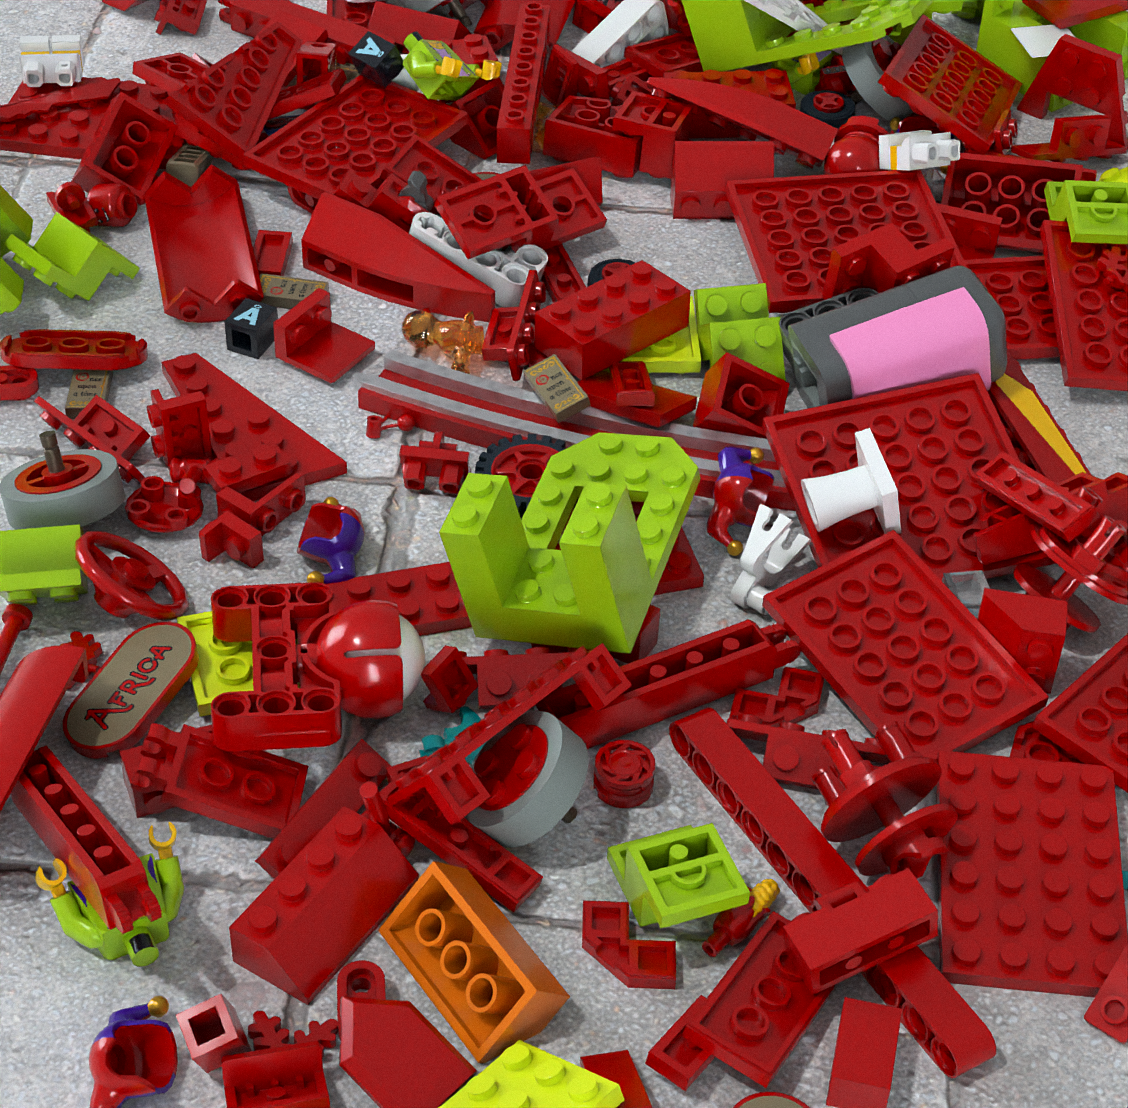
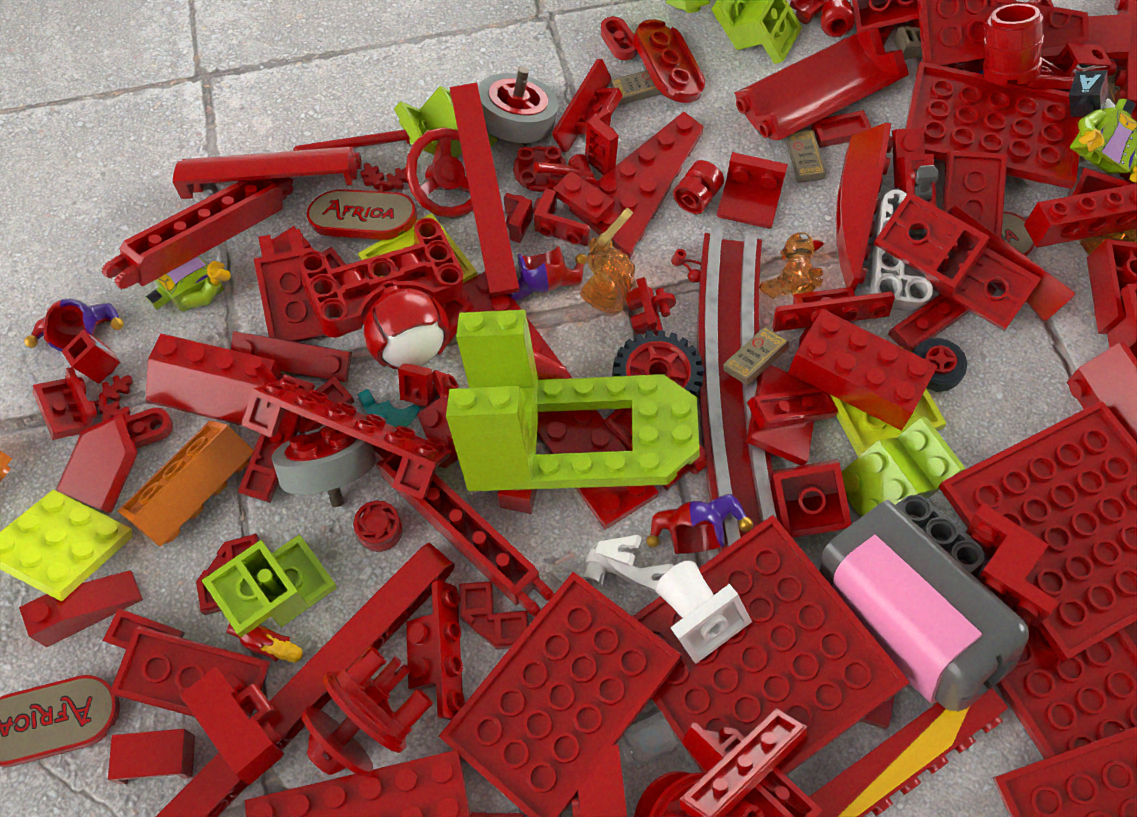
camera: 75 degrees right, 20 degrees up
(189, 535) = (484, 190): none -> red tile
(251, 328) = (746, 141): black brick -> none
(290, 376) = (698, 187): none -> red wheel
(291, 73) = (1013, 44): none -> red piece
(382, 472) = (611, 271): none -> clear orange helmet

